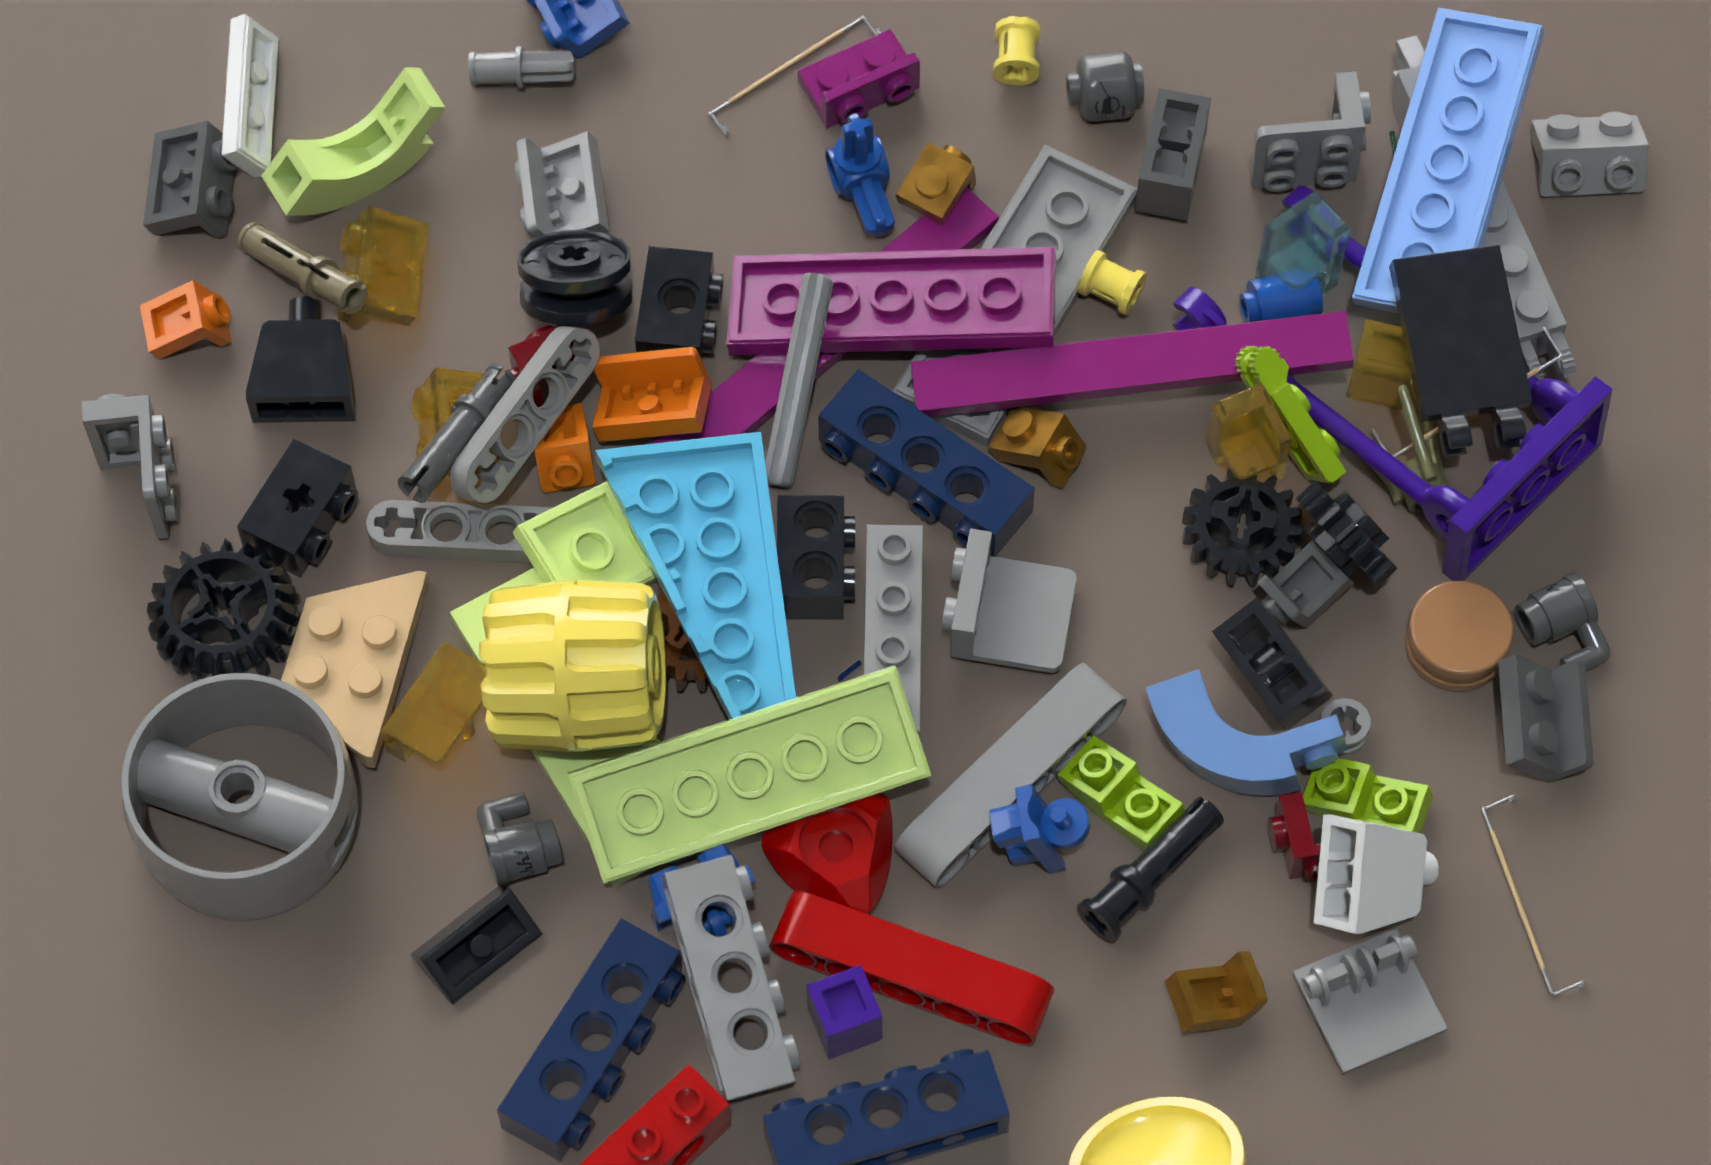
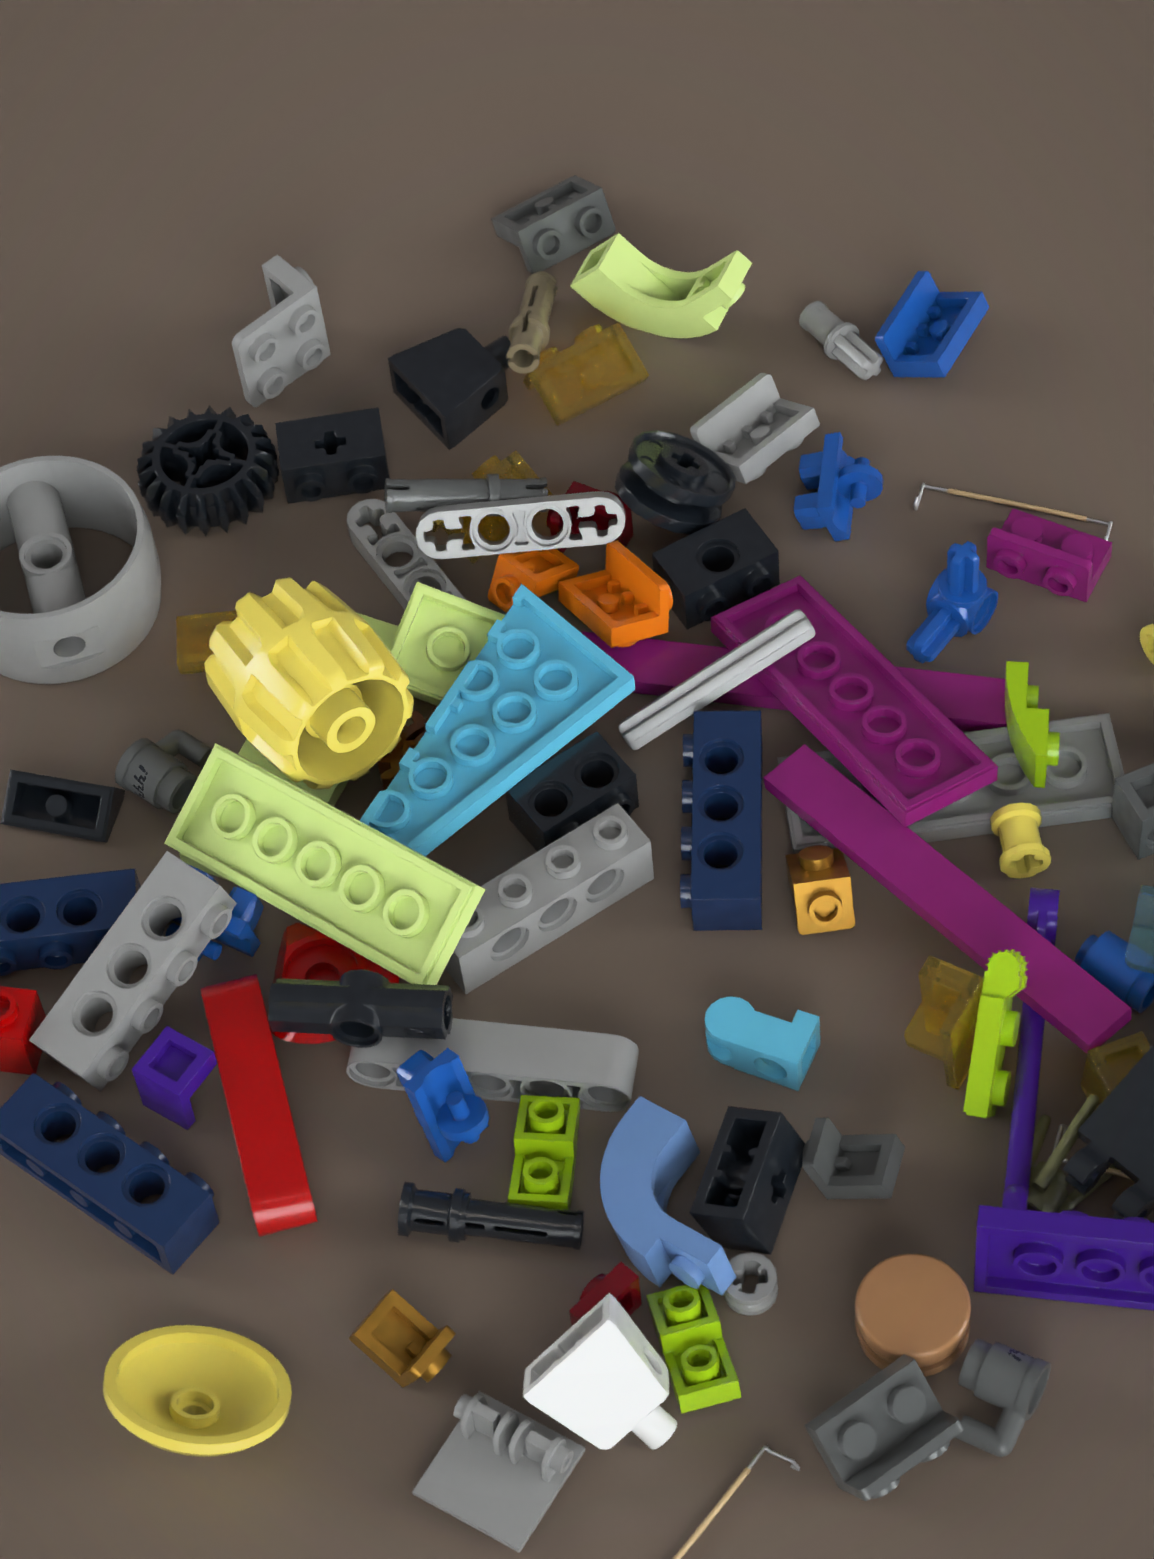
camera: 60 degrees right, 10 degrees down
(185, 318) = (438, 290): orange bracket -> none
(250, 96) = (660, 200): white tile -> none
(354, 655) = (228, 561): tan wing -> none
(683, 191) = (841, 486): none -> blue hips
(913, 830) = (360, 1008): none -> black piece
(937, 182) = (984, 653): pearl gold bracket -> none
(1008, 608) = (642, 956): light grey bracket -> none
(1037, 209) = (1029, 725): none -> lime slope
(1148, 579) = (761, 1042): none -> medium azure leg
(1215, 519) = (869, 1083): black gear -> none
(1346, 533) = (919, 1151): black gear -> none

